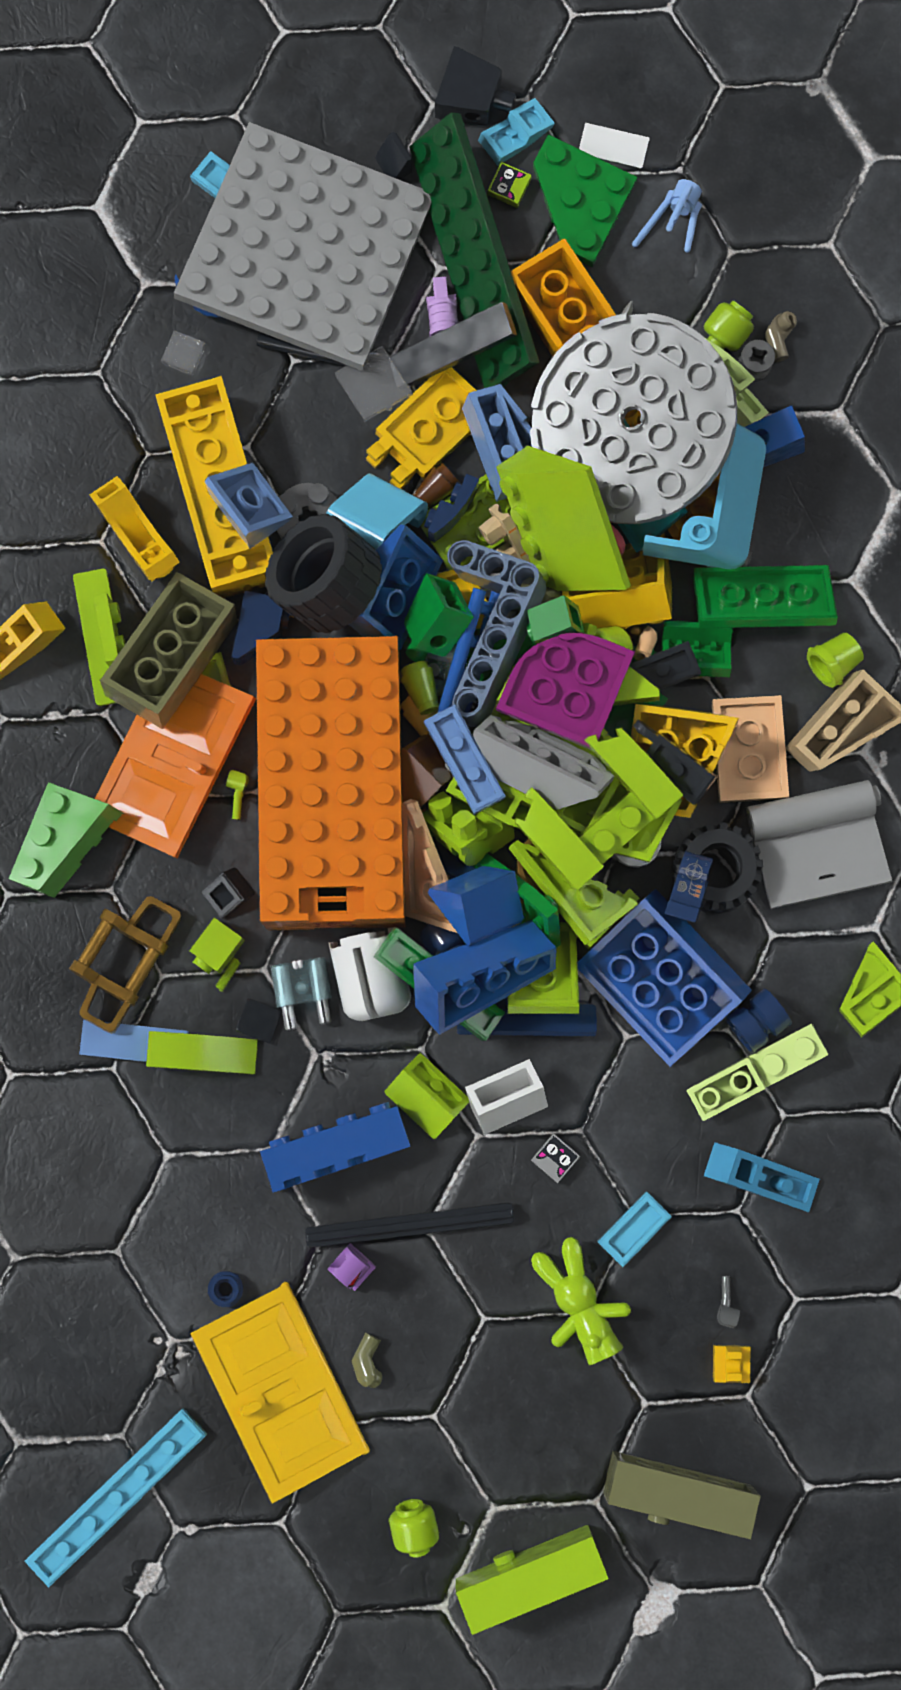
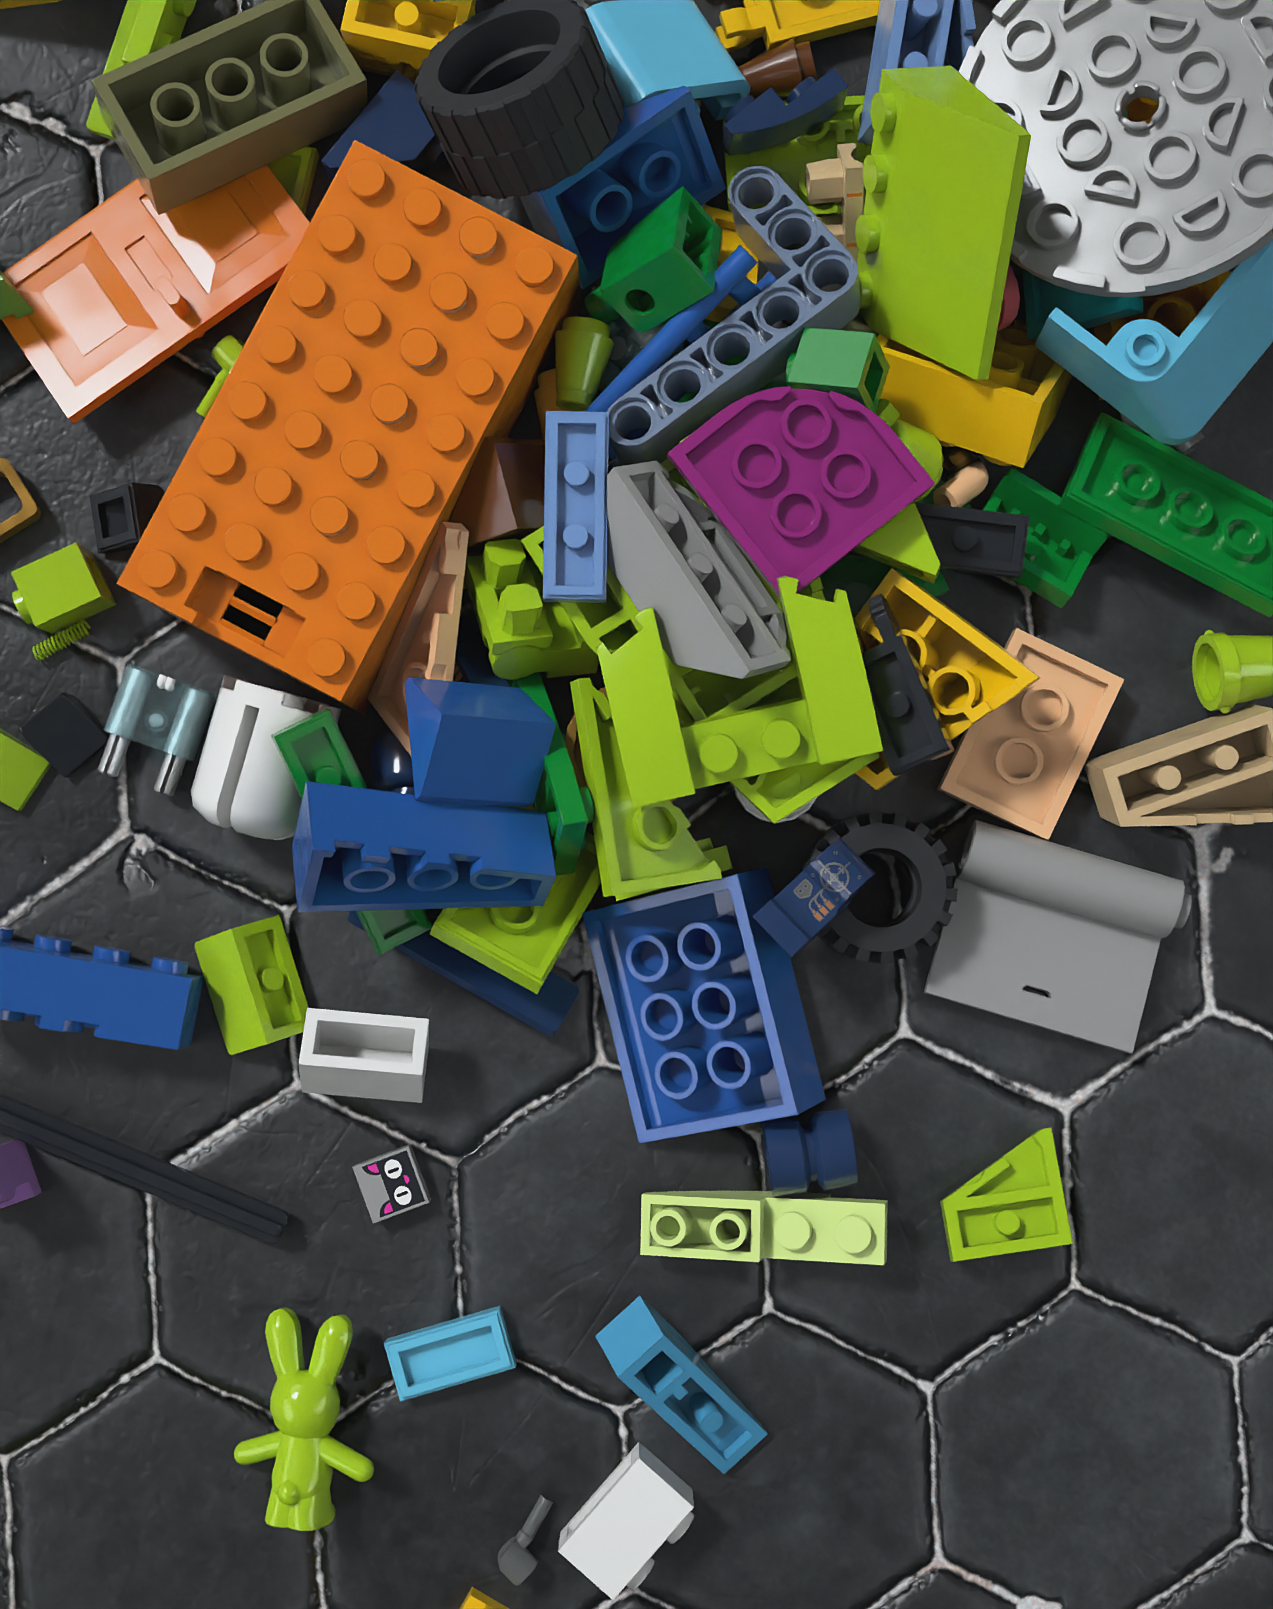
camera: 30 degrees right, 5 degrees up
(774, 1262) = (627, 1522): none -> white piece

